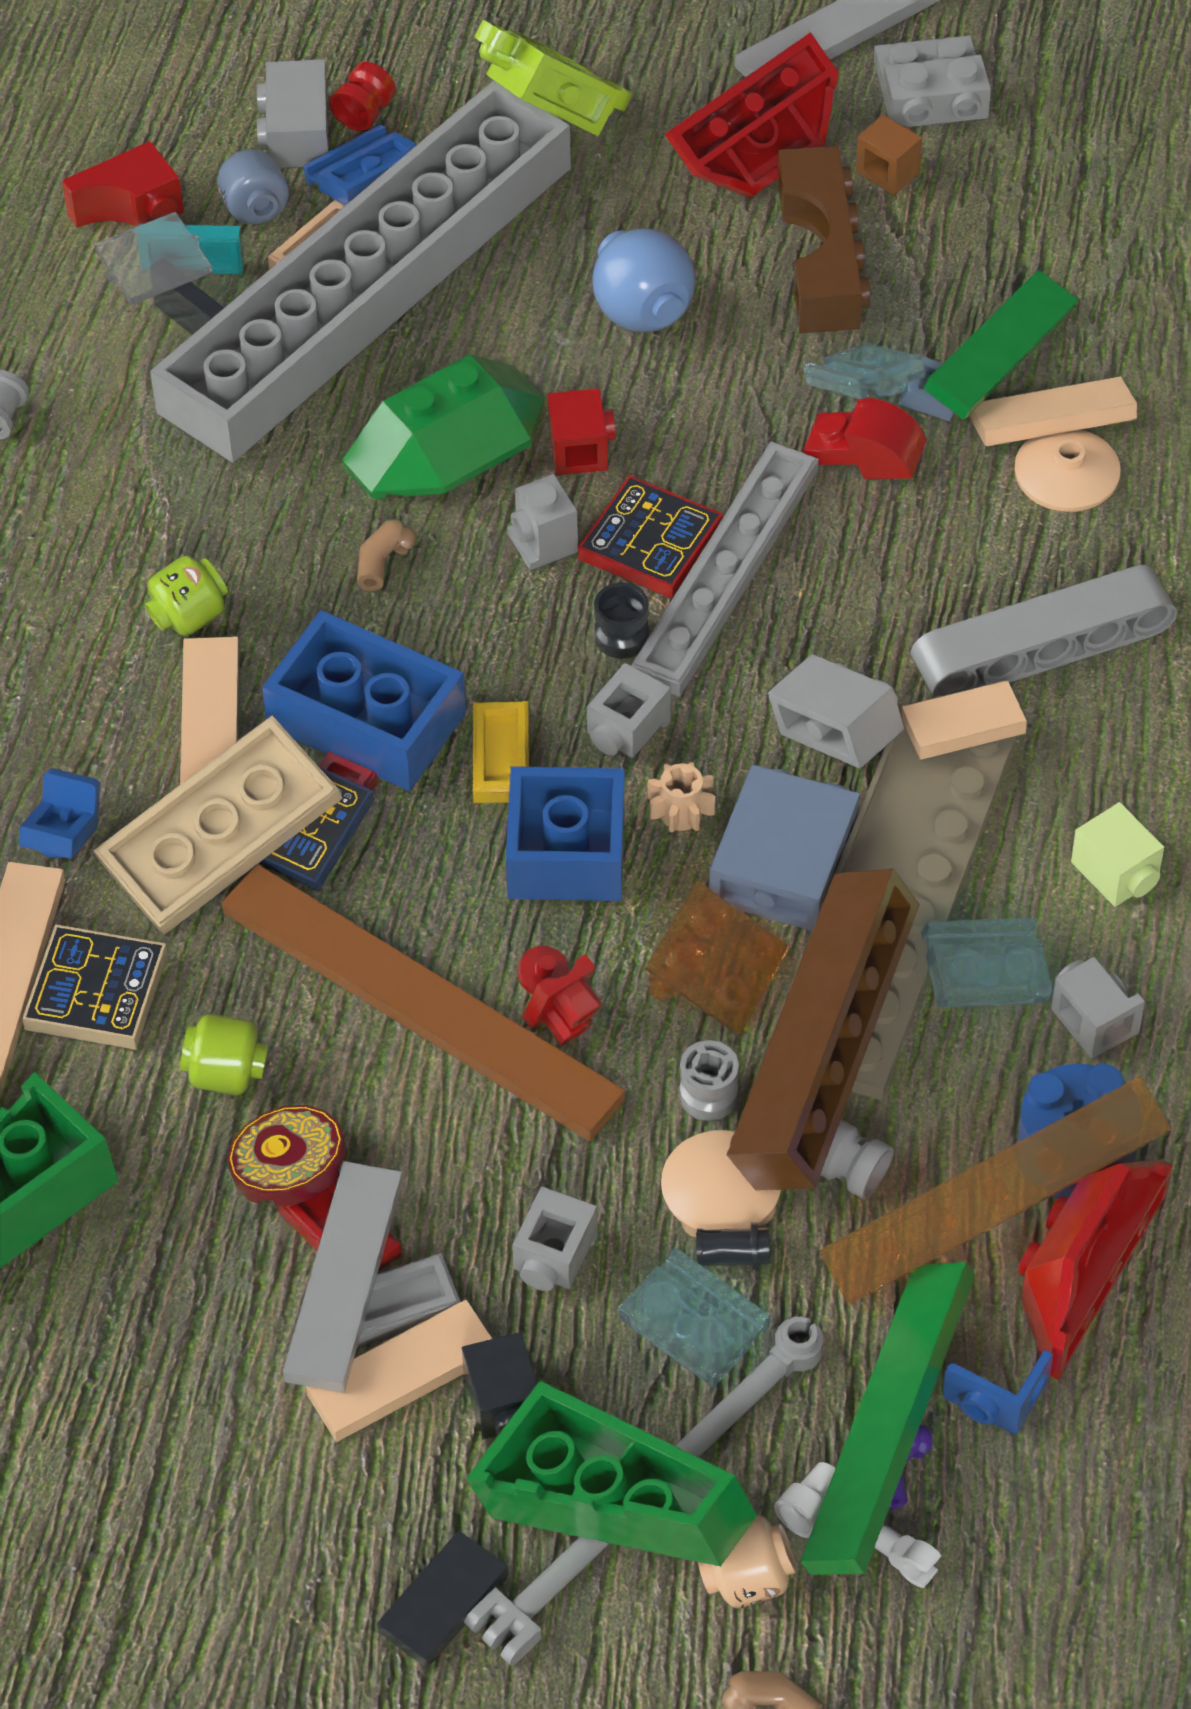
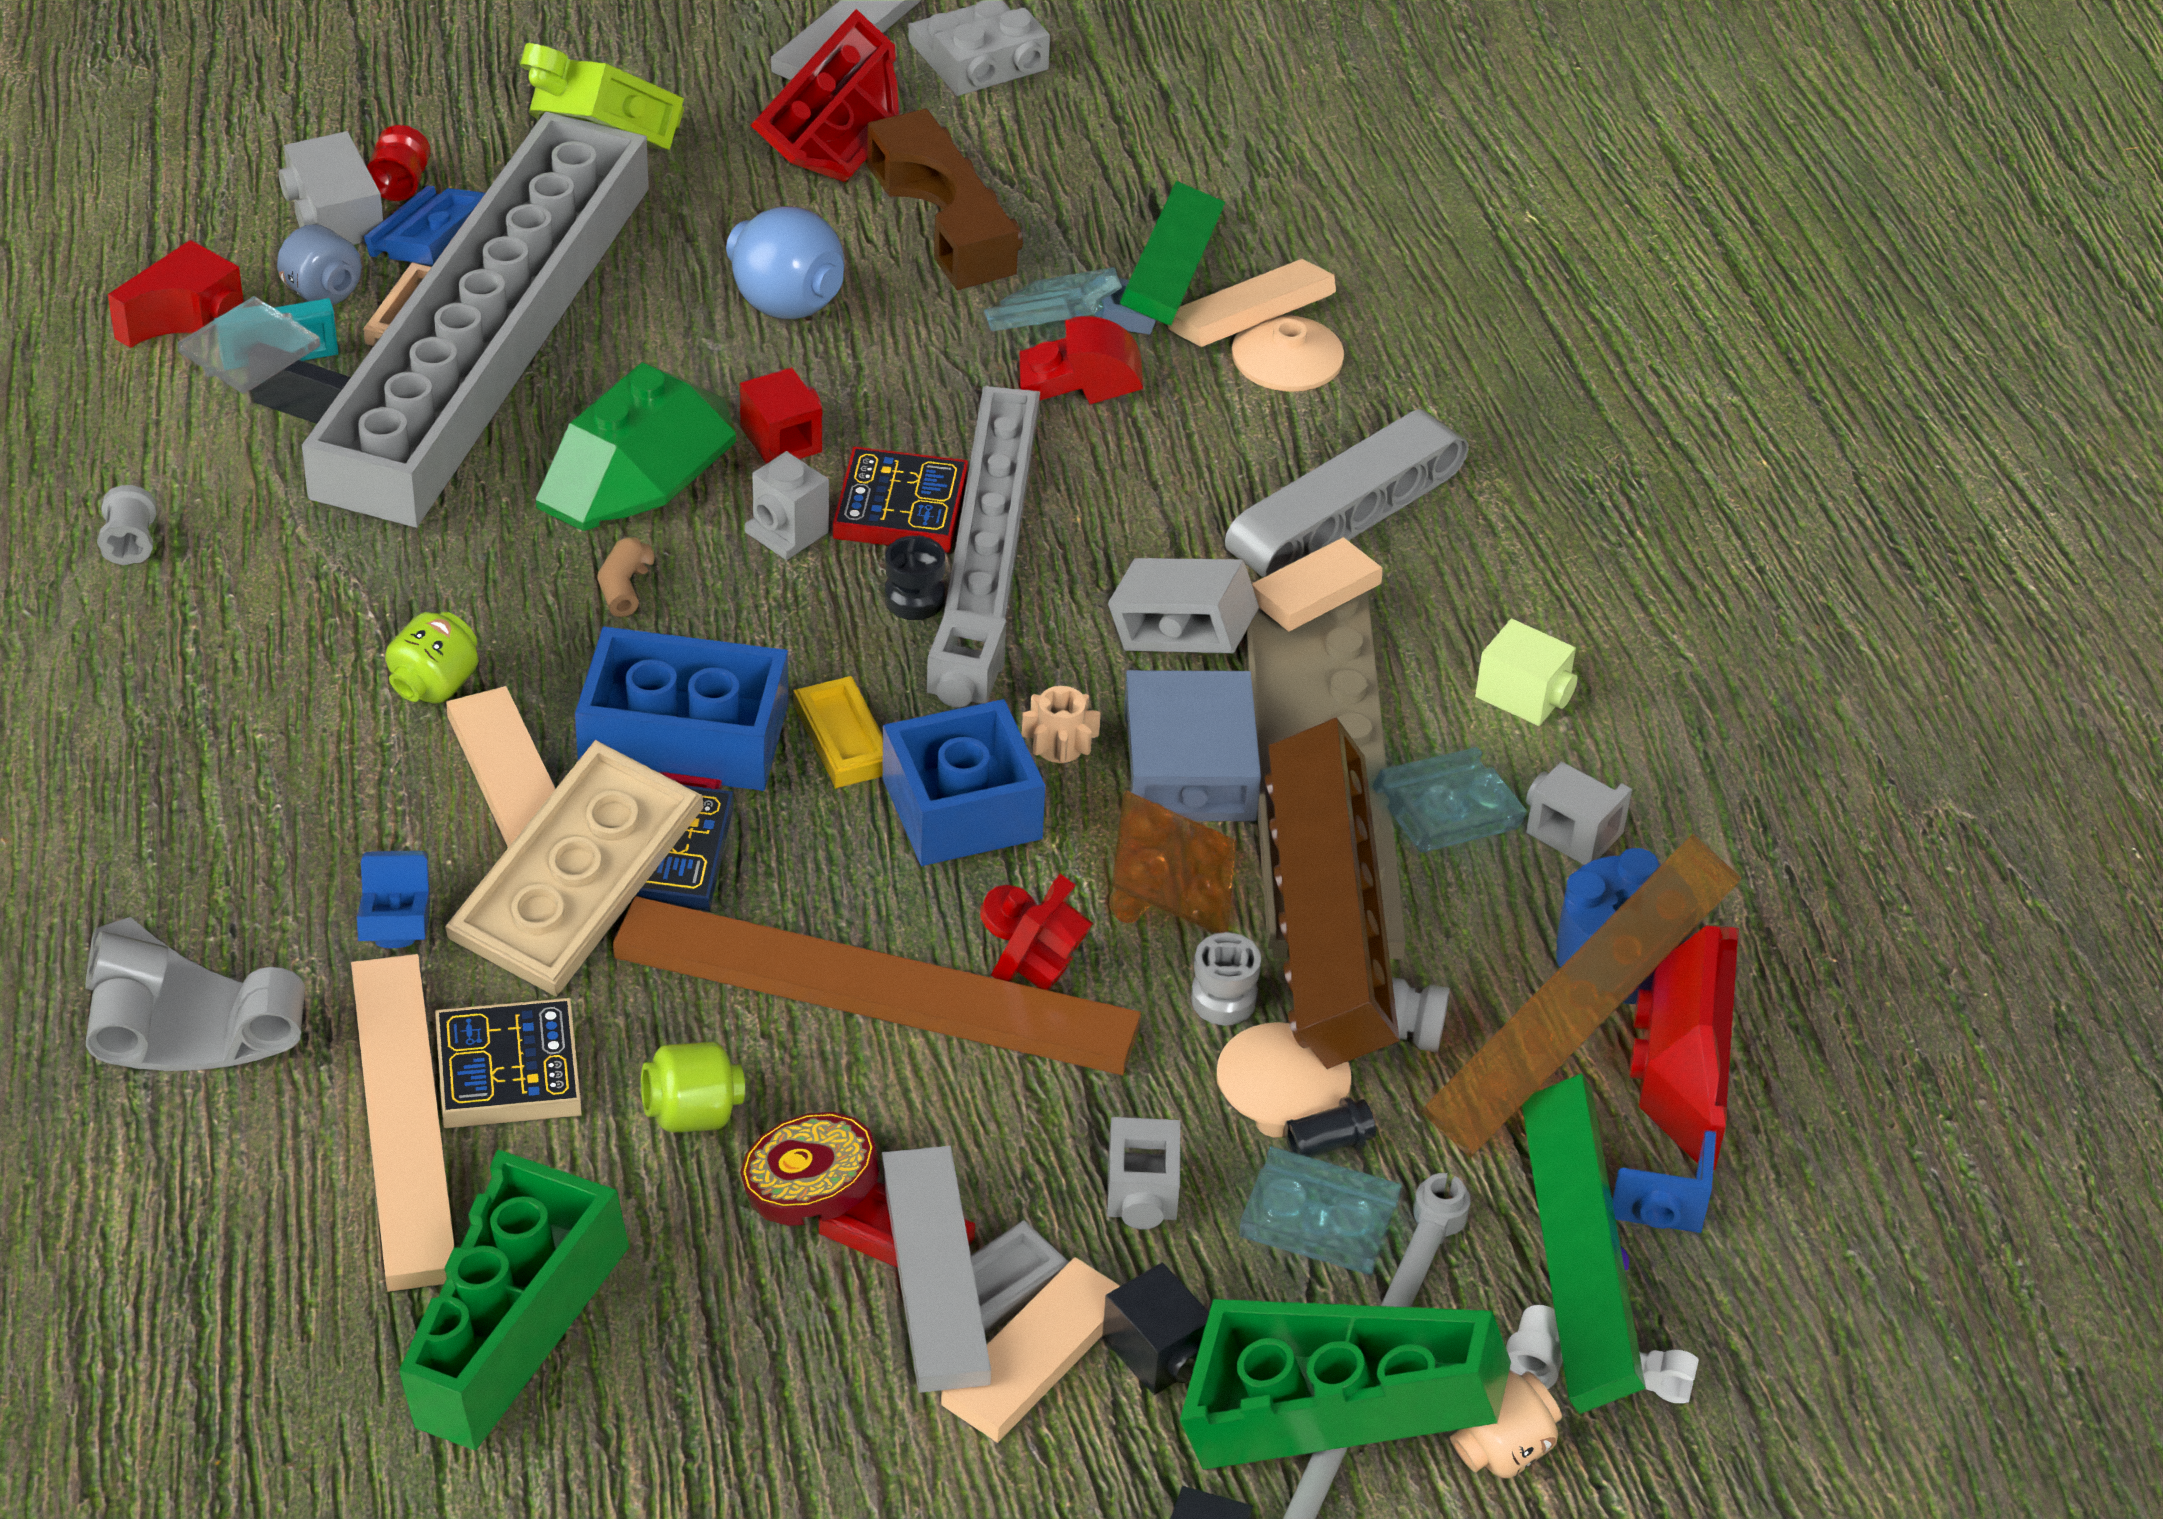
camera: 25 degrees left, 10 degrees down
(888, 154) = (974, 111): dark orange plate -> none

